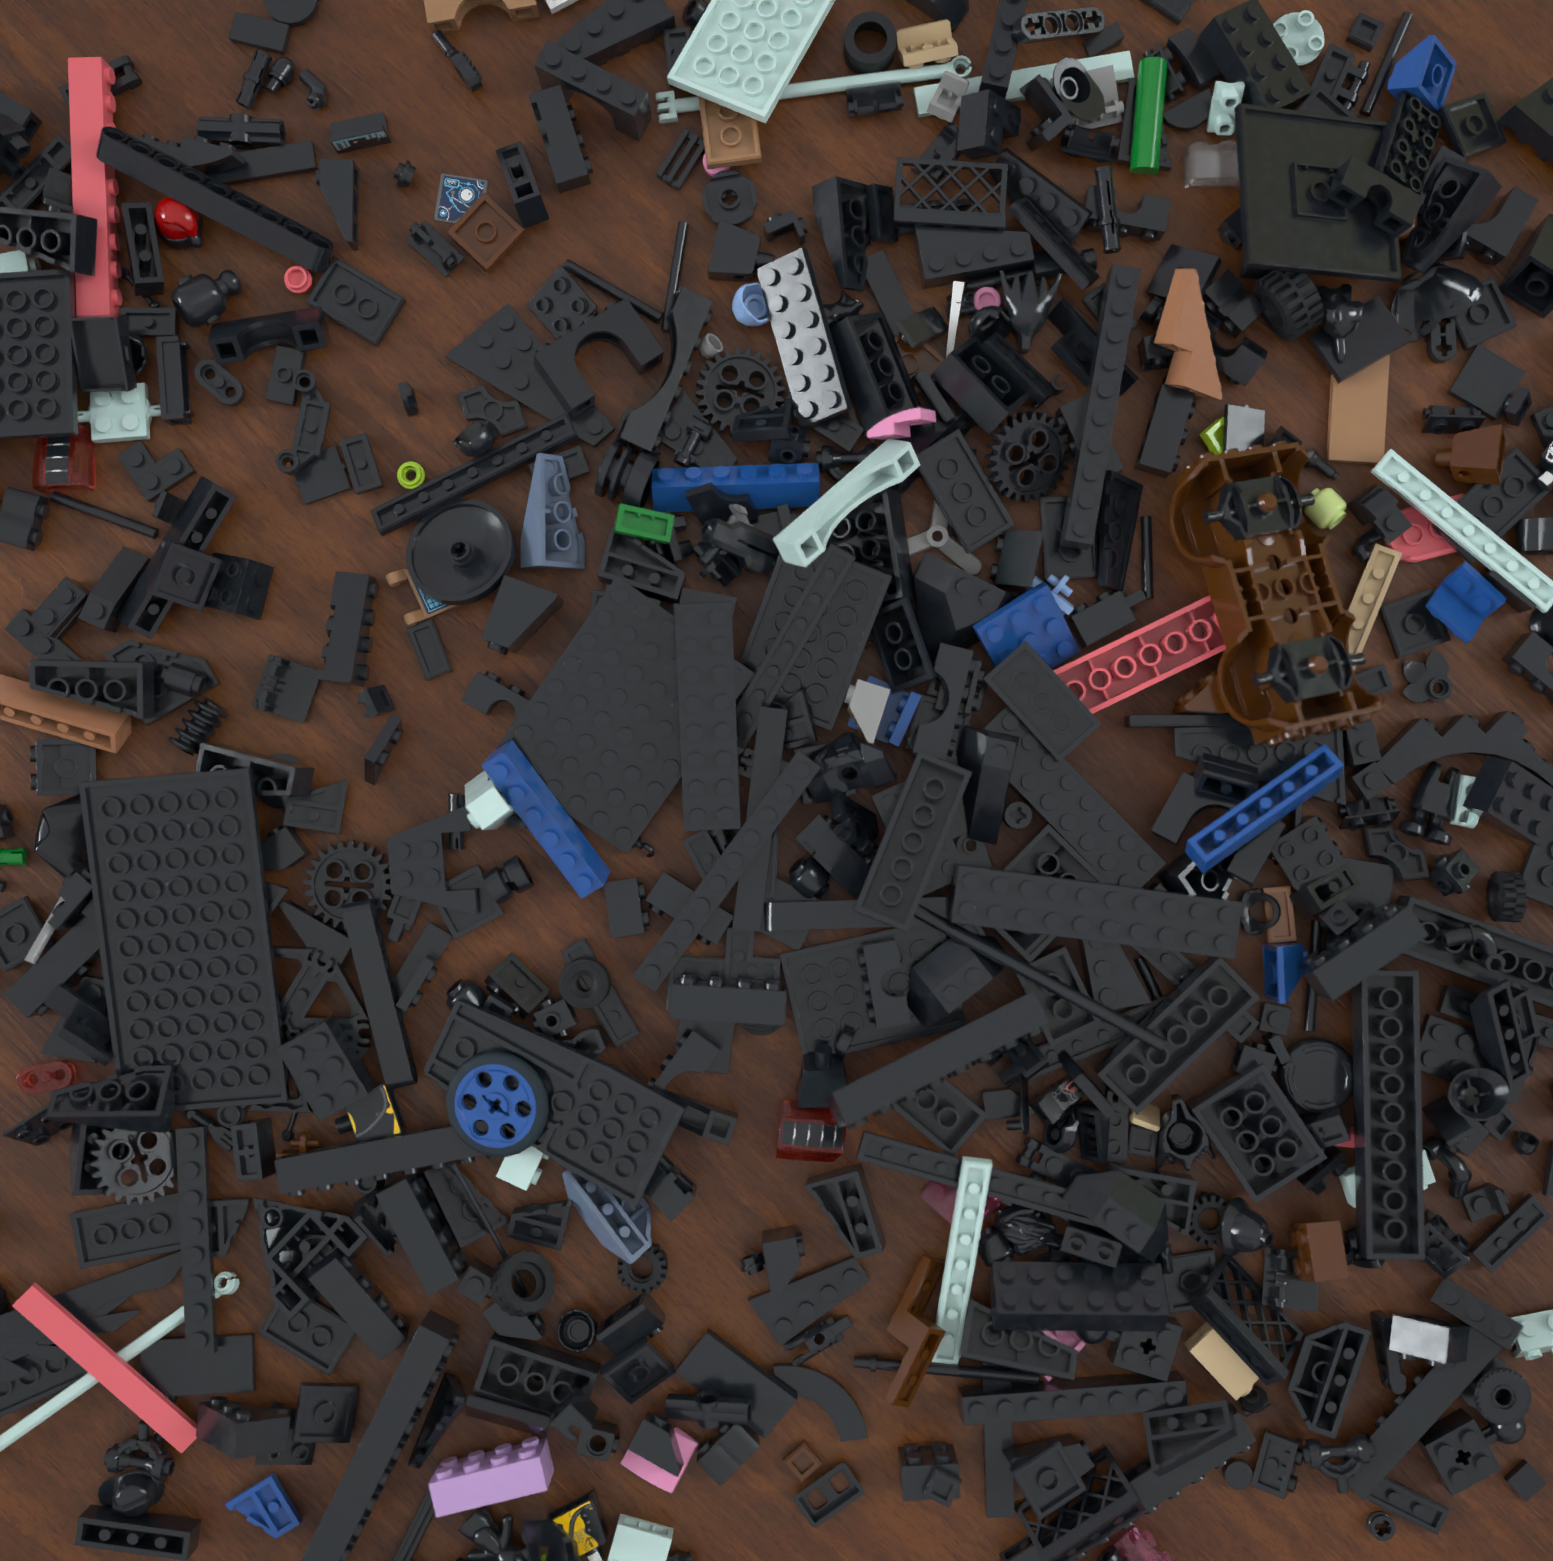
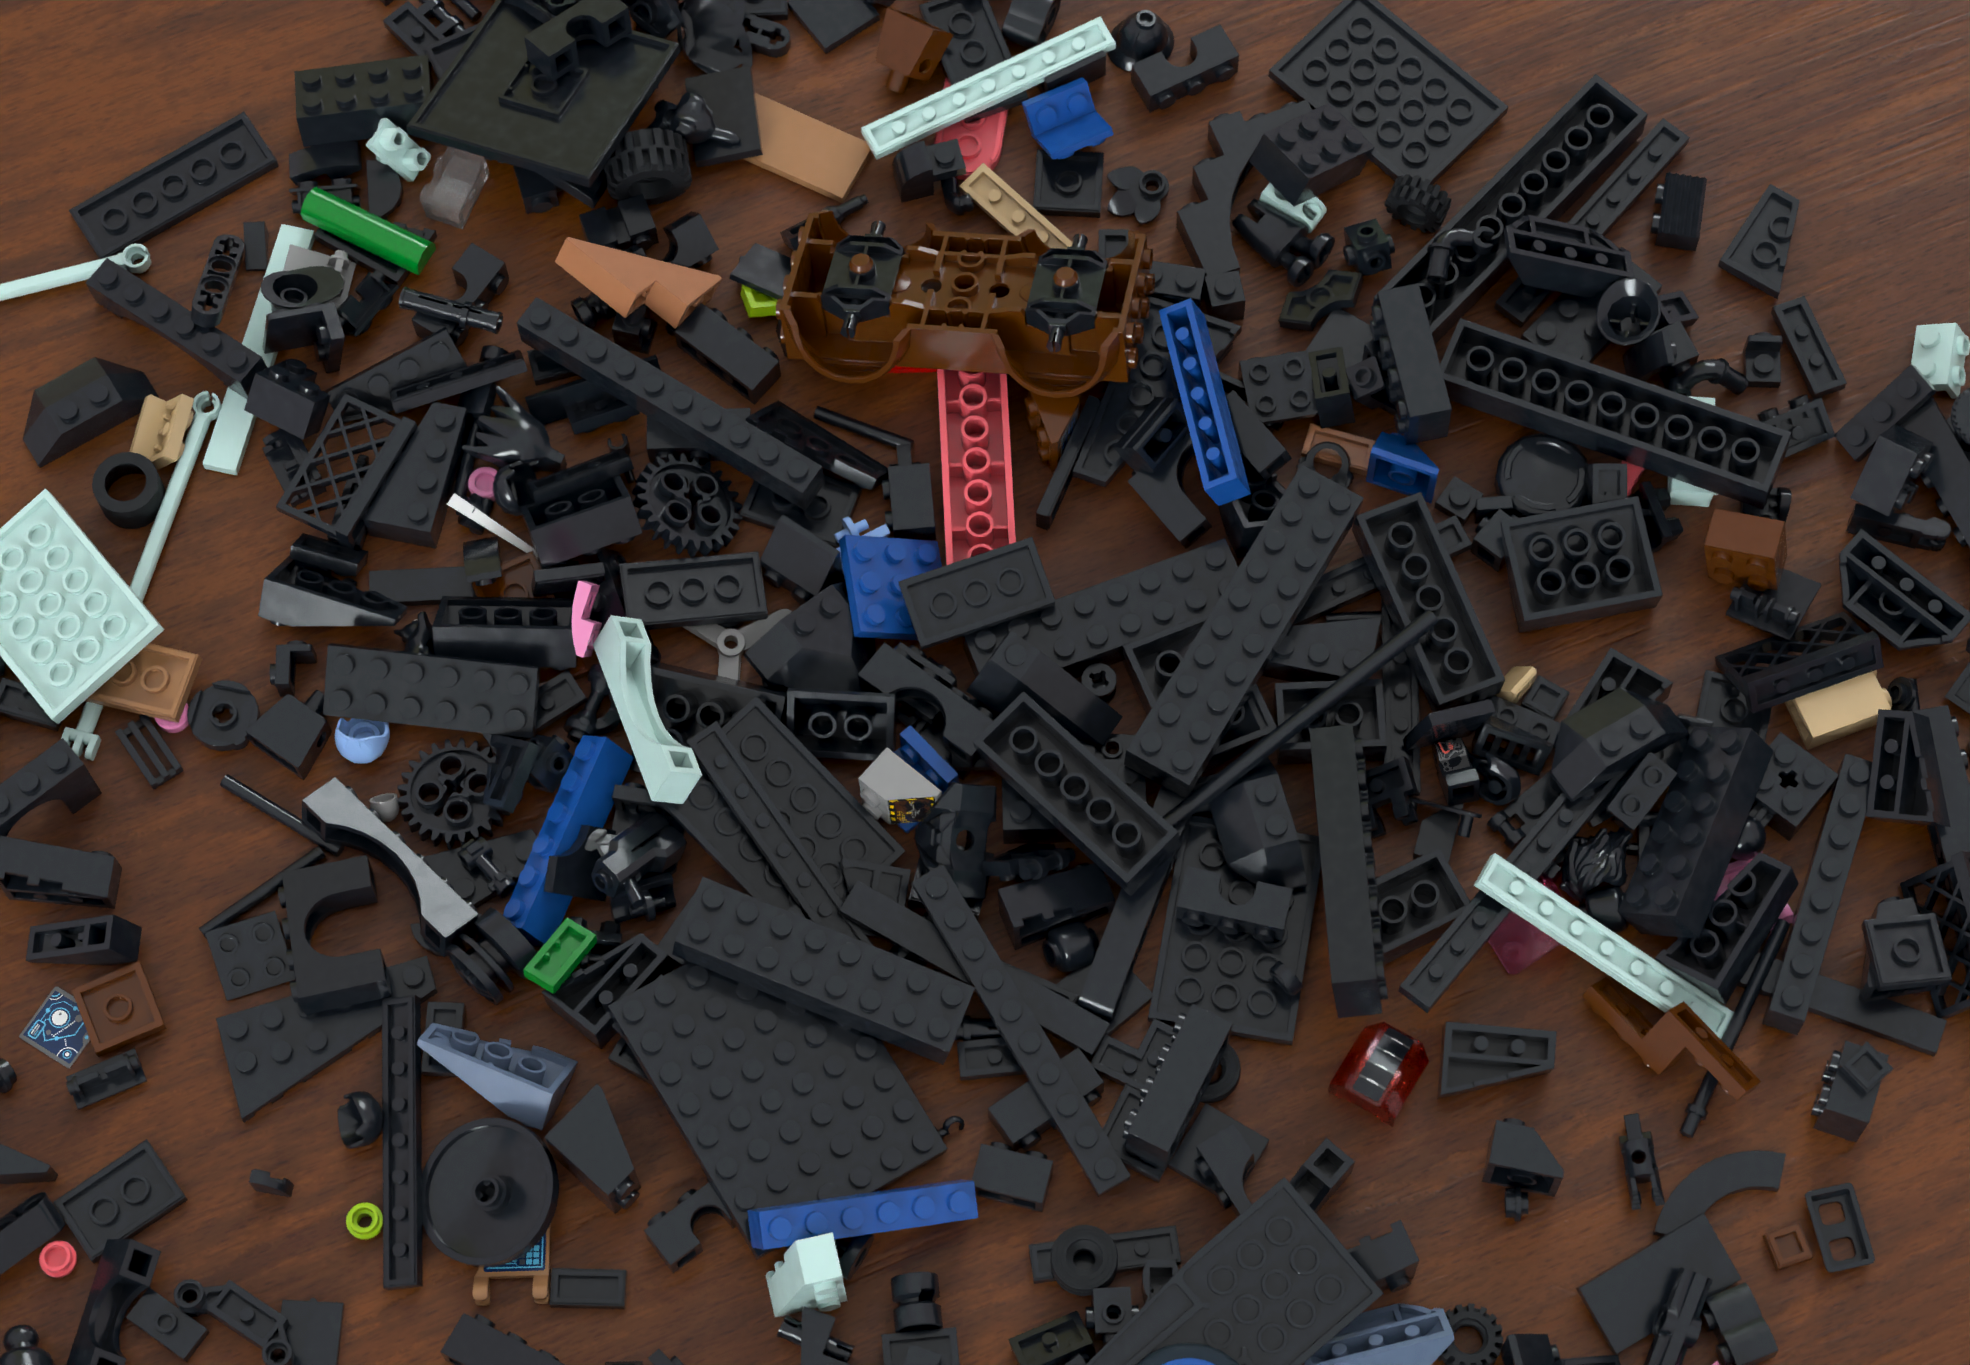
camera: 65 degrees left, 20 degrees down
(361, 463) = (321, 1274): black plate -> none
(503, 415) = (319, 1103): black tile -> none
(808, 1298) = (1592, 1180): black wing -> none
(820, 1076) = (1316, 1028): black torso -> none
(874, 99) = (193, 511): black hinge -> none
(948, 96) = (234, 427): light grey bracket -> none
(1181, 1136) = (1555, 648): black piece -> none
(1183, 258) = (547, 274): black plate -> none
(1201, 1203) = (1676, 643): black tyre -> none
(1244, 1229) = (1692, 622): black hat -> none
(1301, 35) = (358, 44): light aqua dish -> none
(1311, 996) = (1436, 445): black bar -> none
(1327, 509) = (899, 217): yellowish green head -> none
(1380, 812) = (1267, 298): black hinge -> none
(1440, 420) = (856, 70): black hinge -> none
(1525, 1143) = (1711, 293): black hinge -> none

